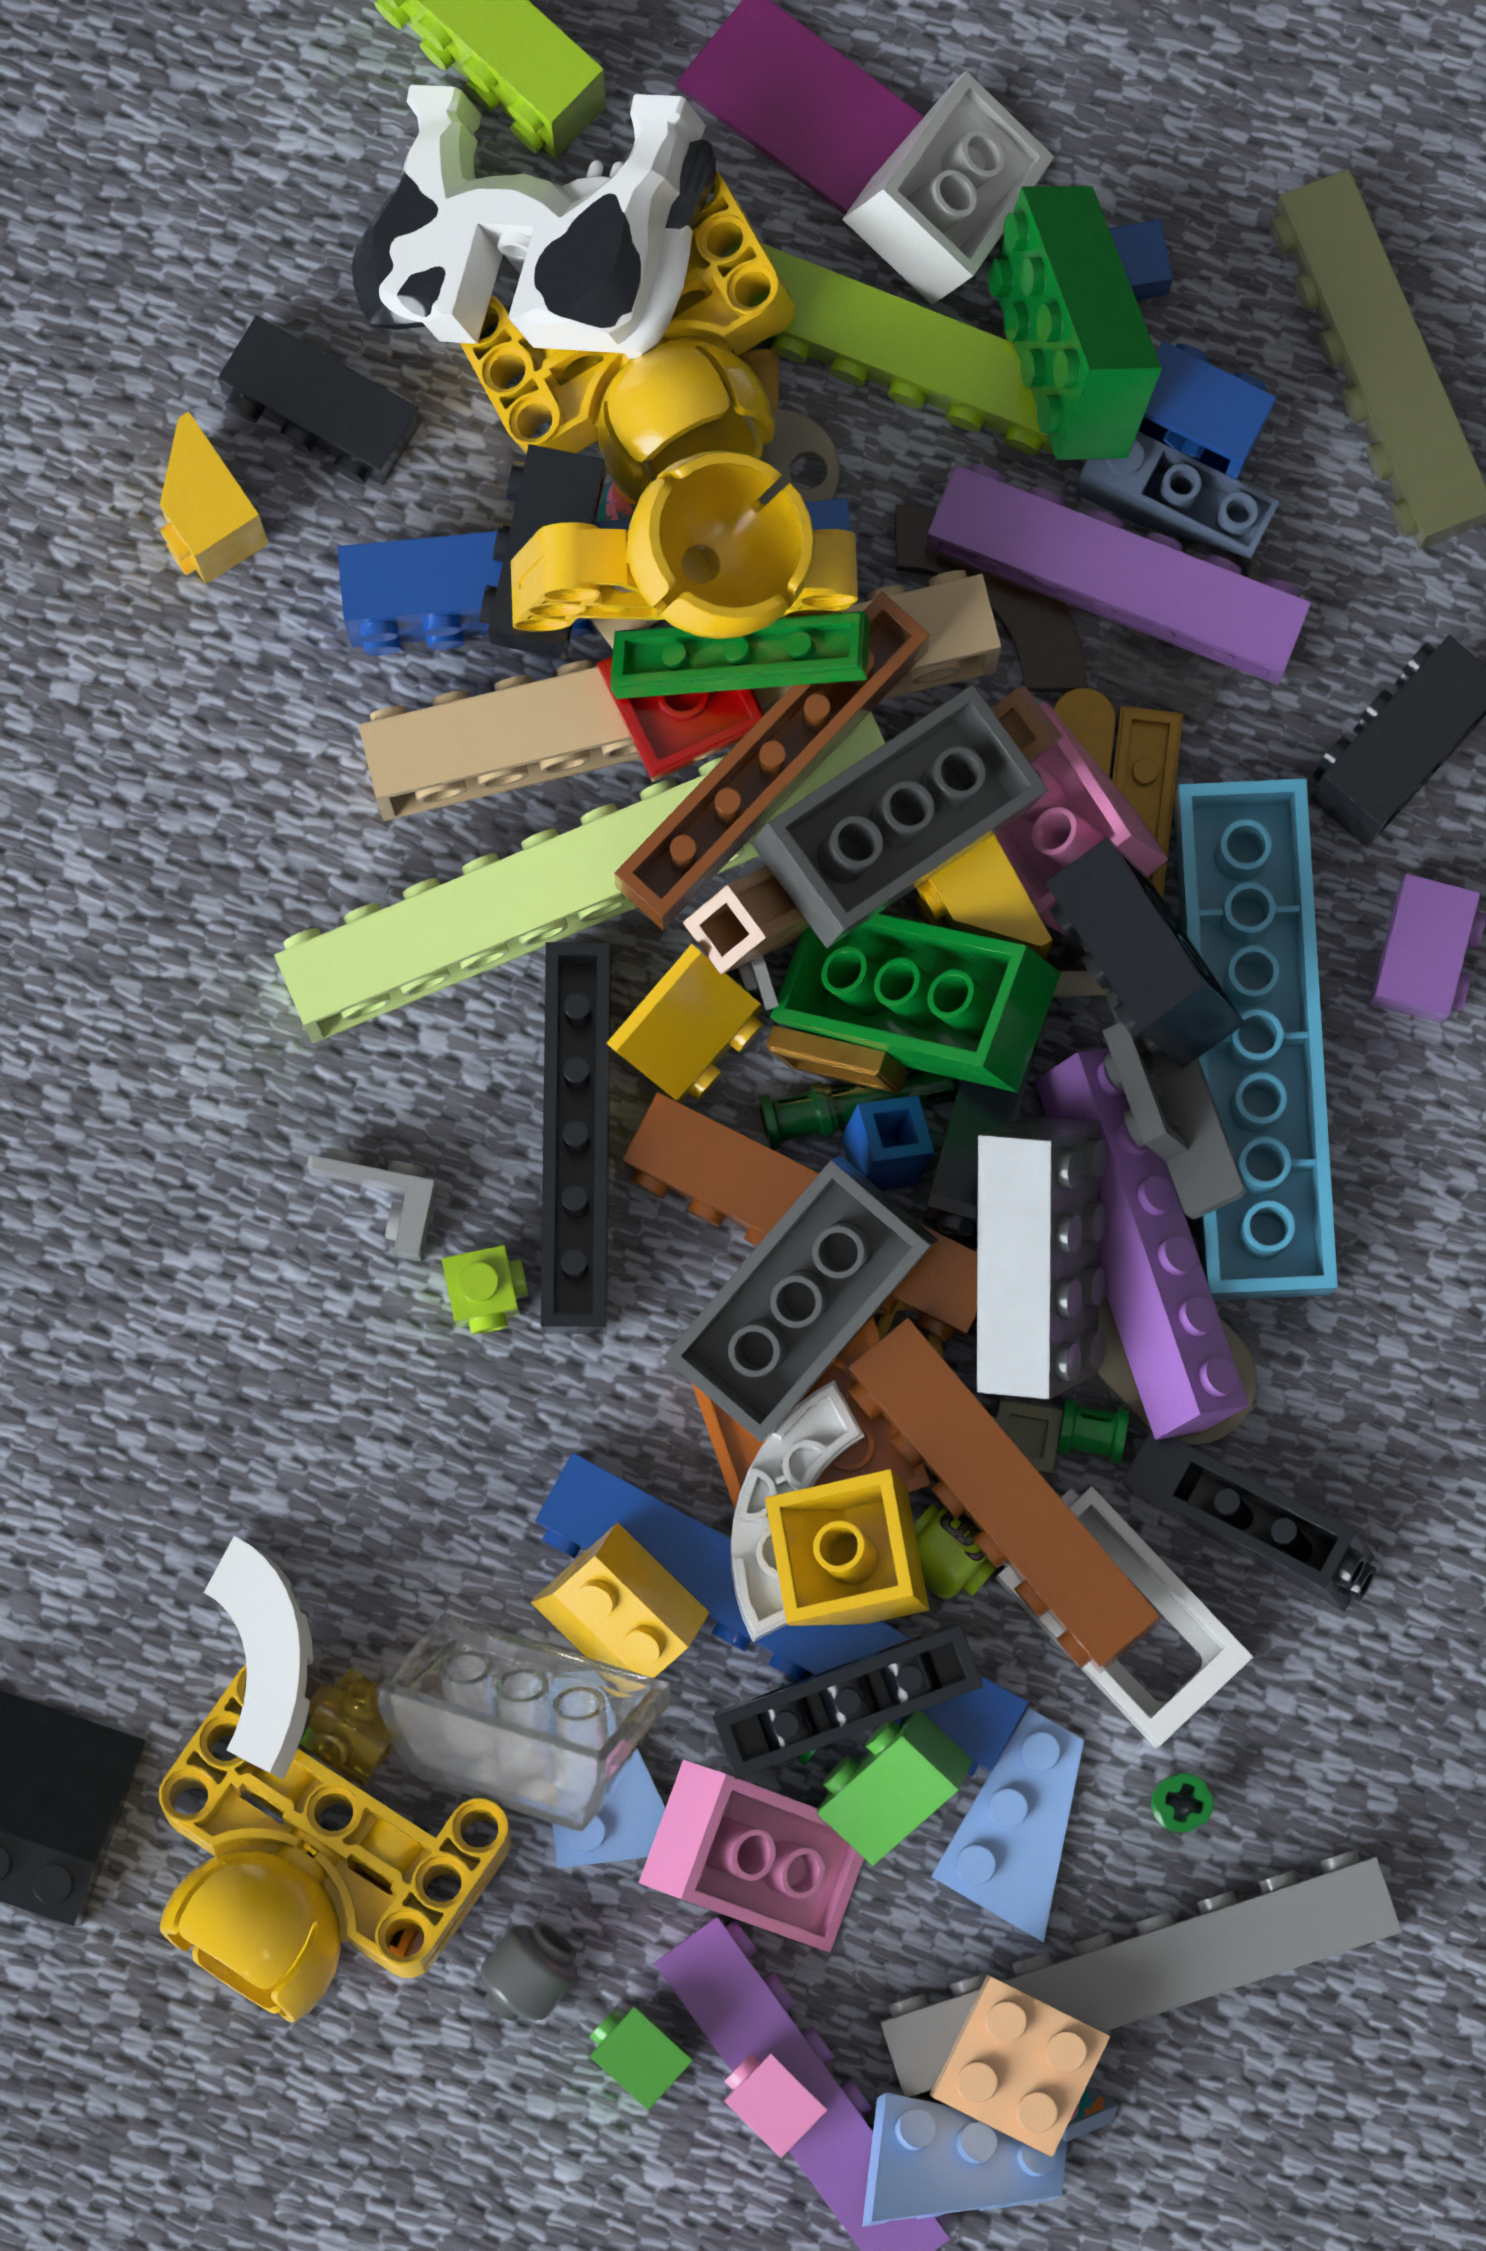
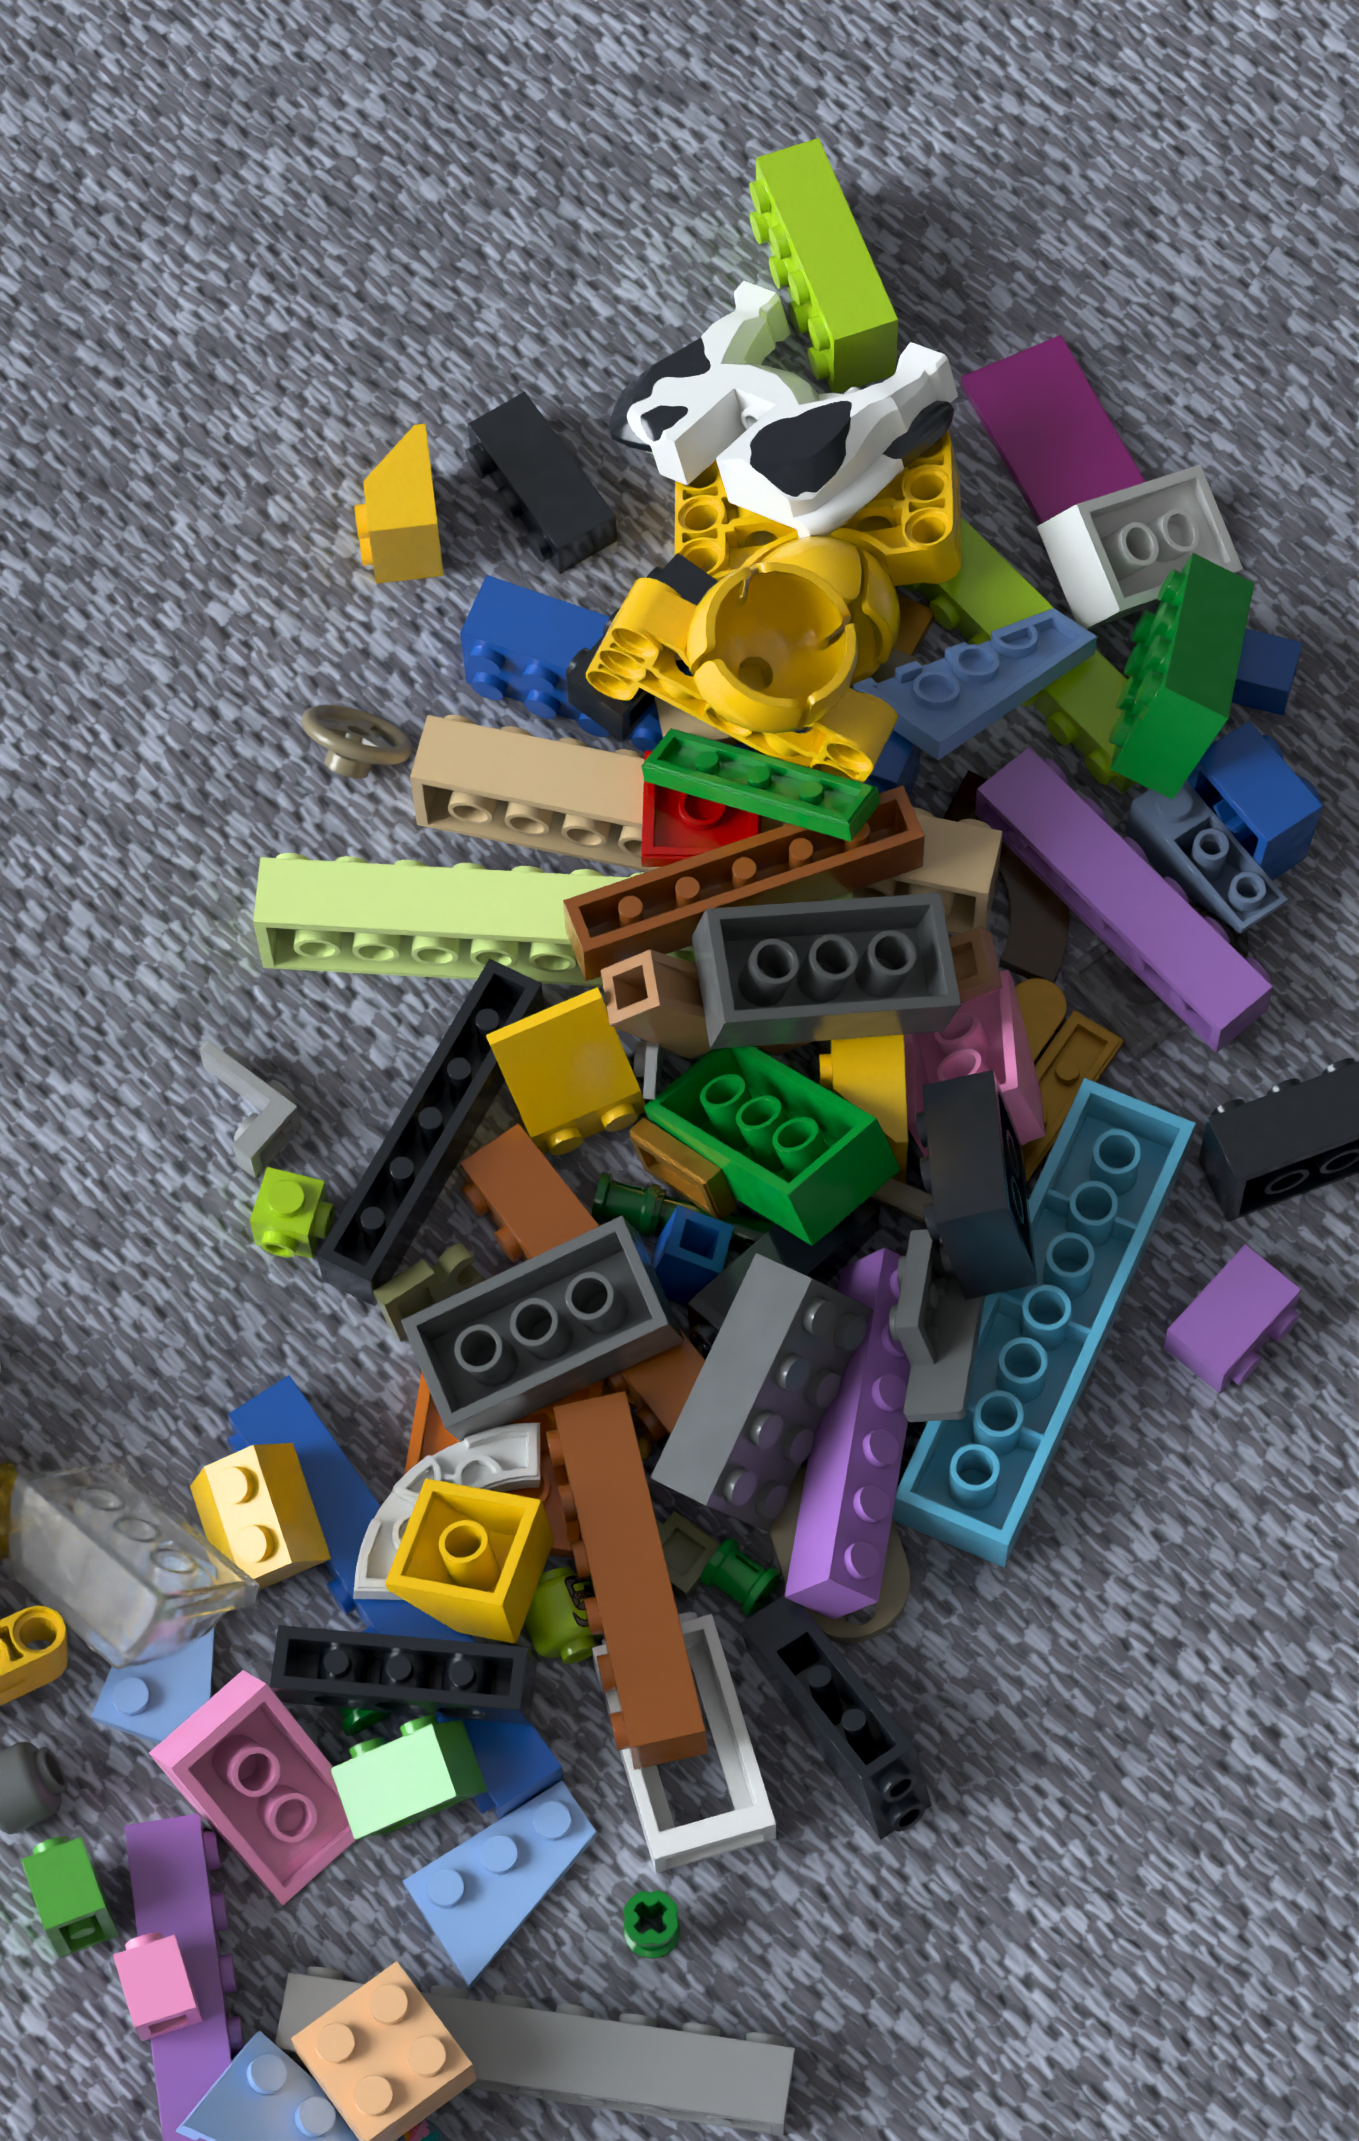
camera: 30 degrees right, 15 degrees down
(283, 777) = (353, 744): none -> dark tan piece
(649, 1302) = (425, 1286): none -> olive plate
(877, 429) = (978, 684): none -> medium blue wing

